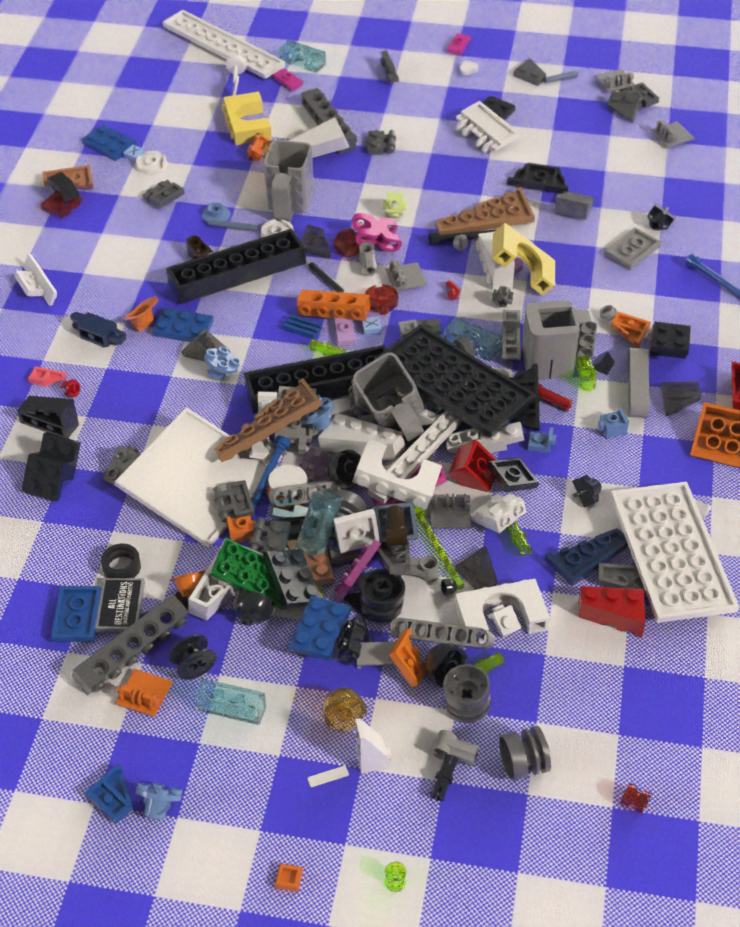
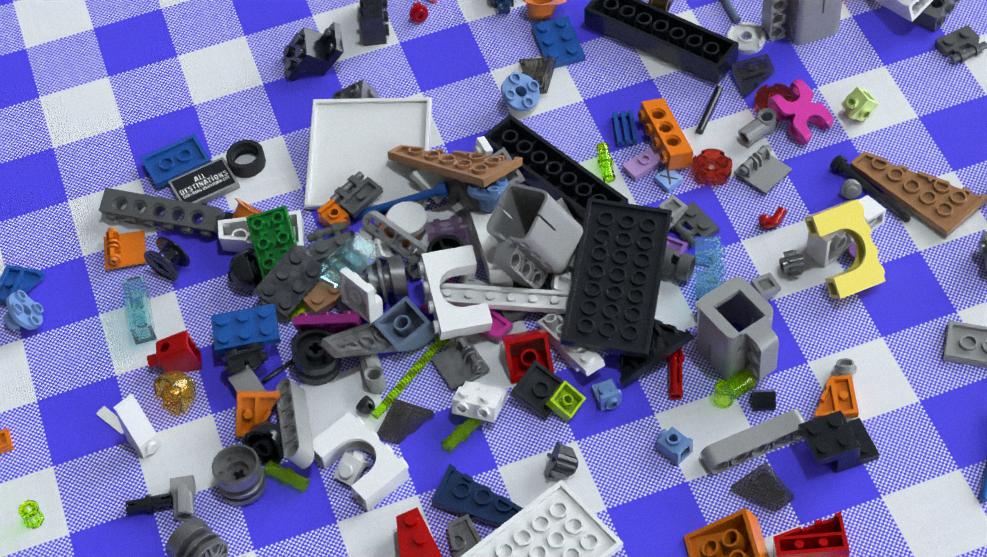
camera: 65 degrees right, 5 degrees up
(303, 692) = (176, 353): none -> red torso
(396, 531) = (384, 327): dark brown piece -> none
(534, 464) = (565, 401): none -> lime piece

